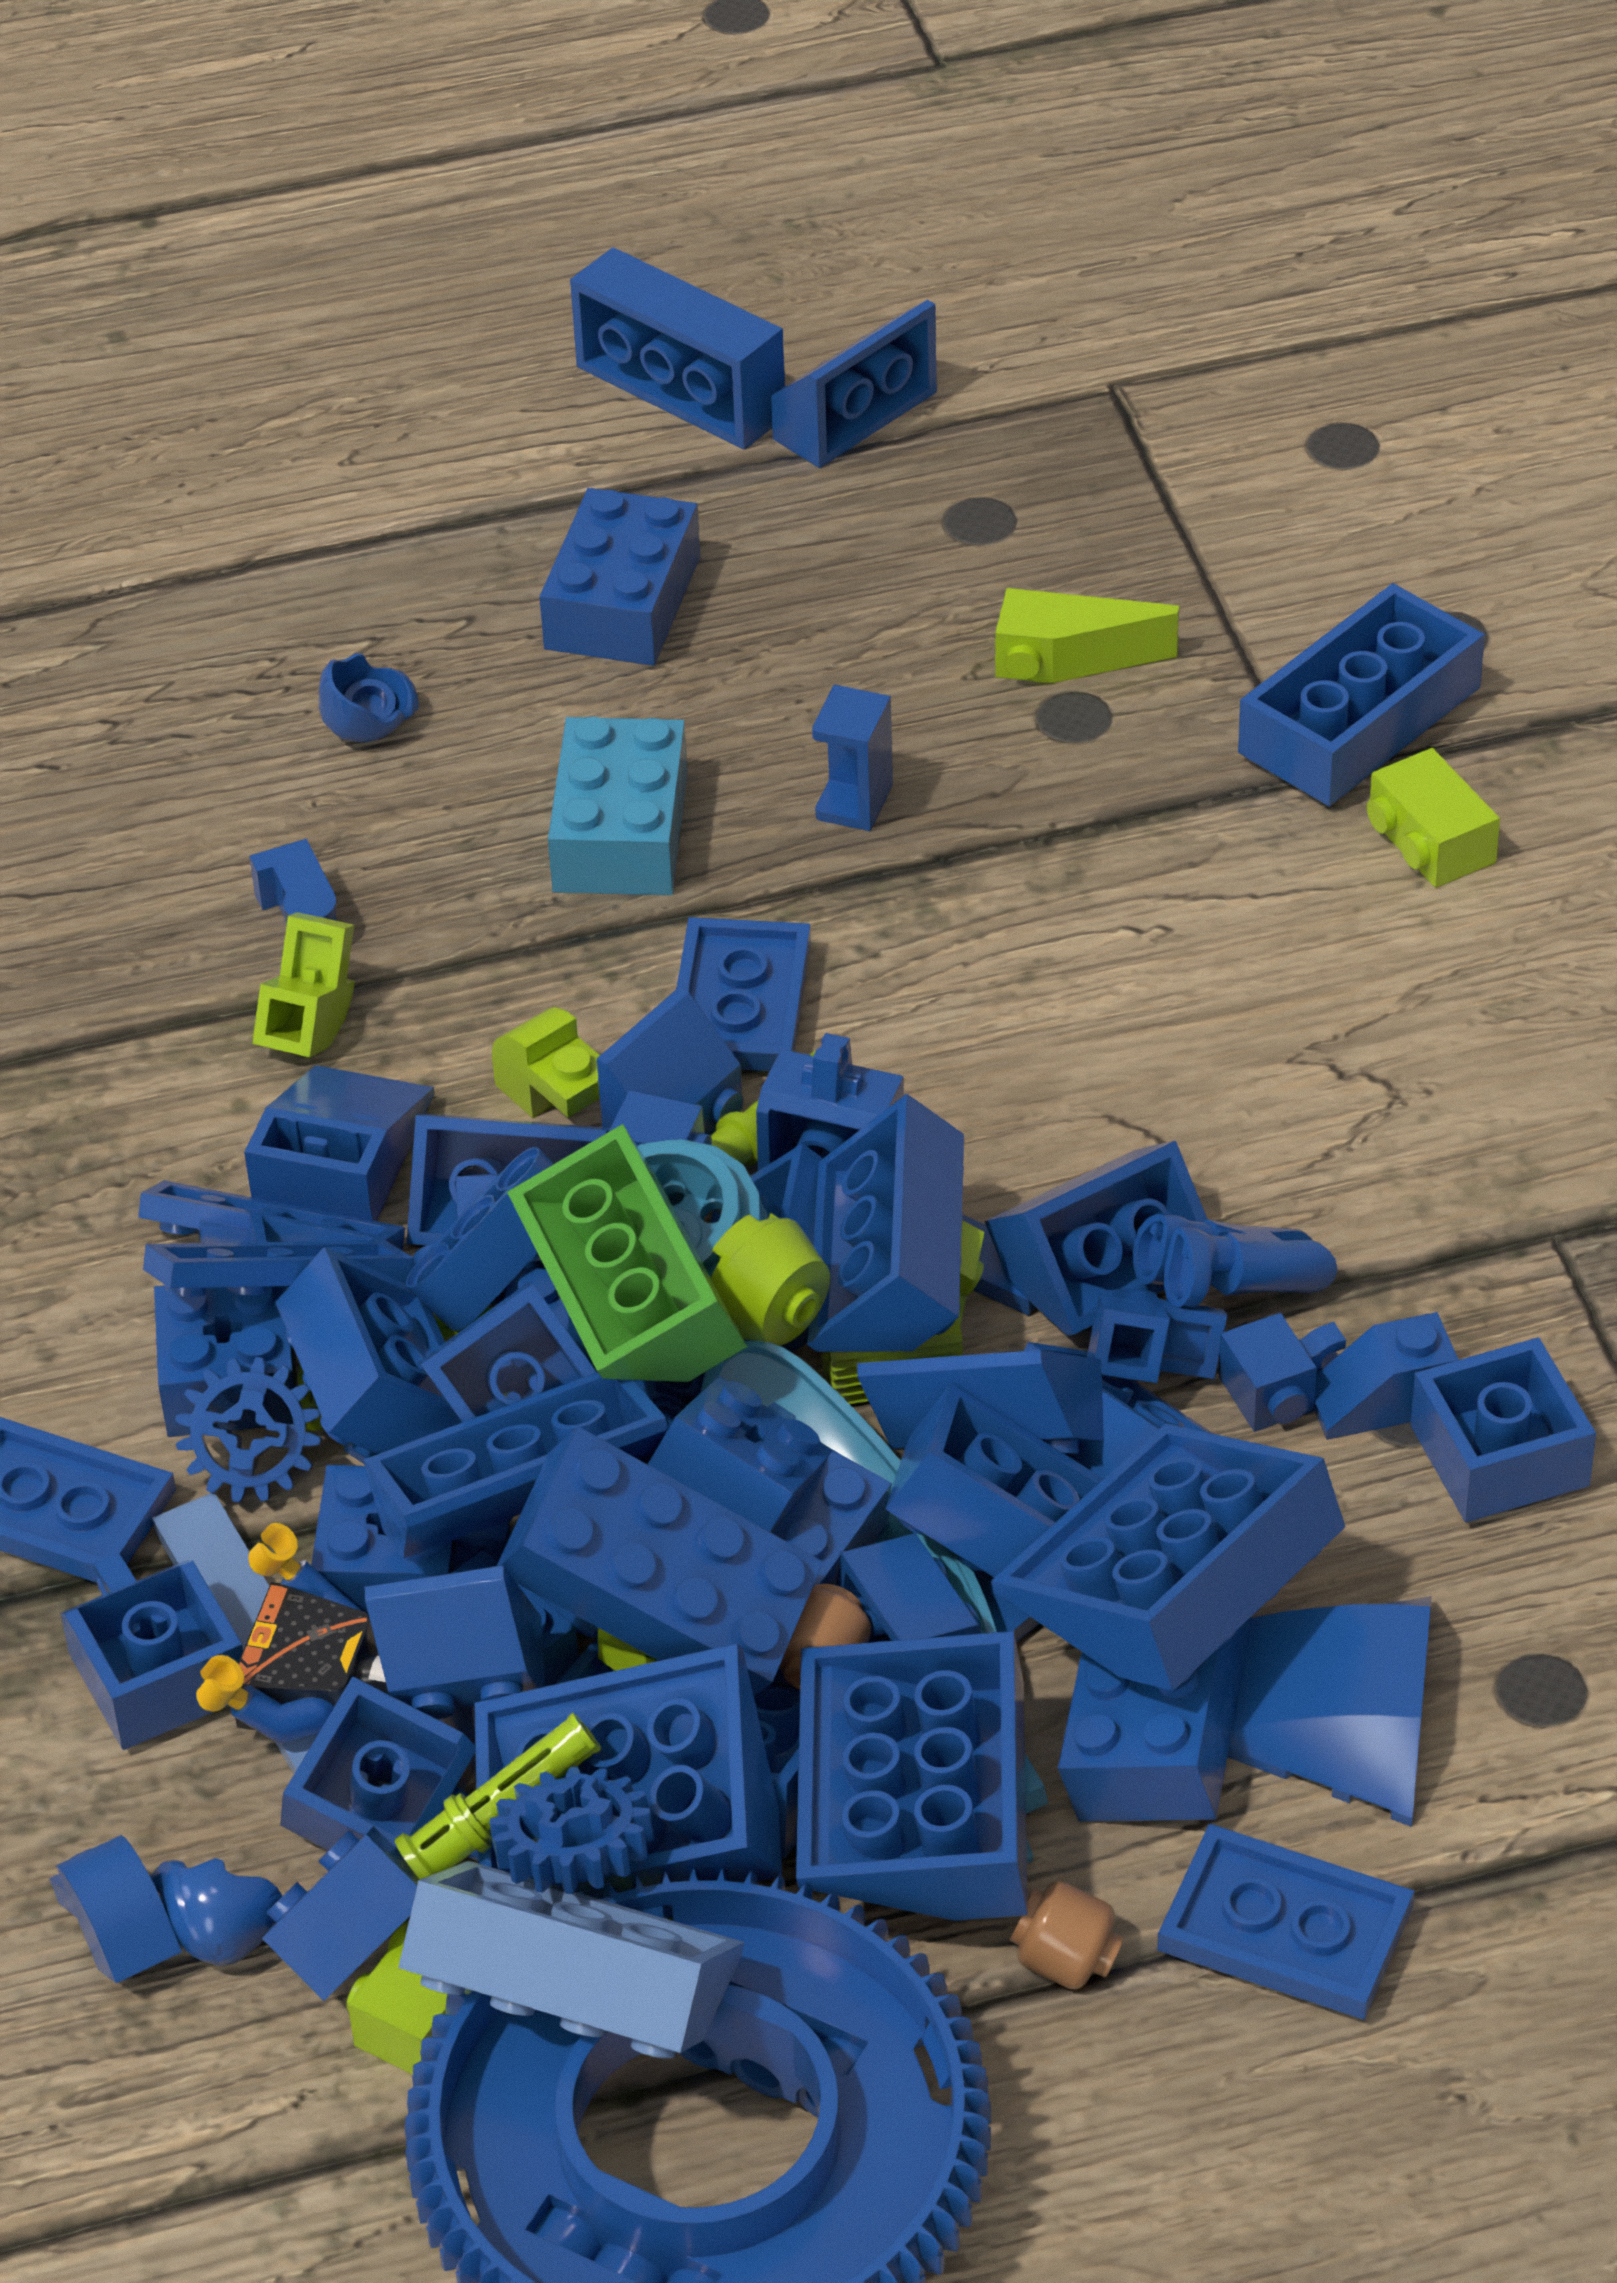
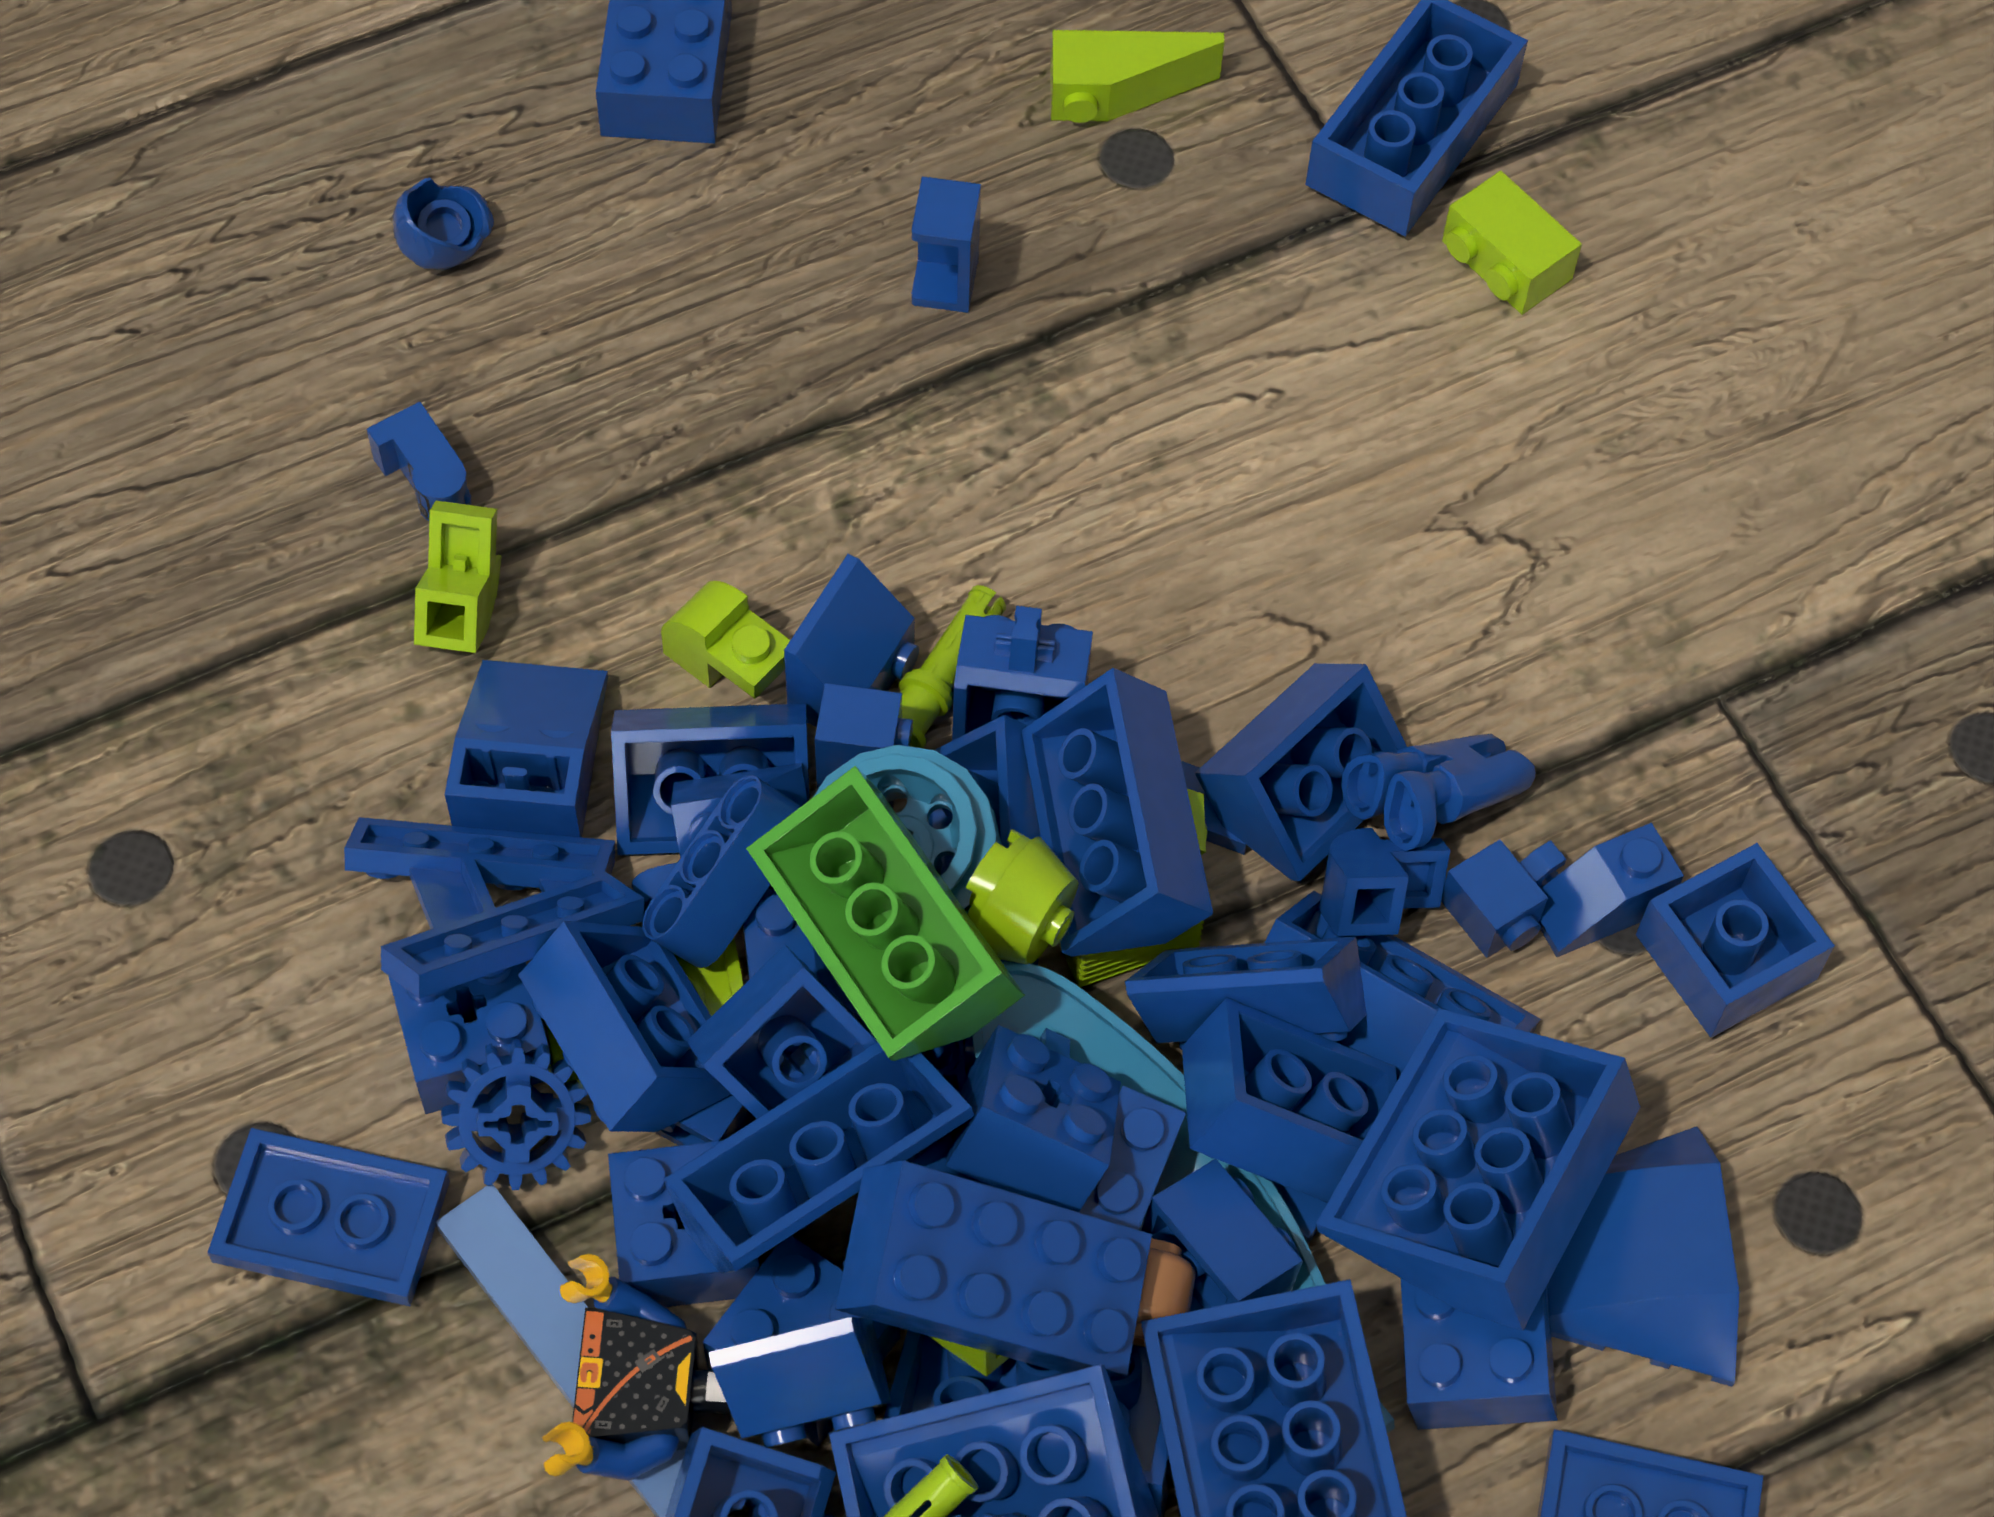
camera: 15 degrees left, 15 degrees up
(146, 1646) = (454, 1350): blue hinge -> none
(618, 806) = (722, 321): dark azure brick -> none
(748, 983) = (893, 514): blue plate -> none

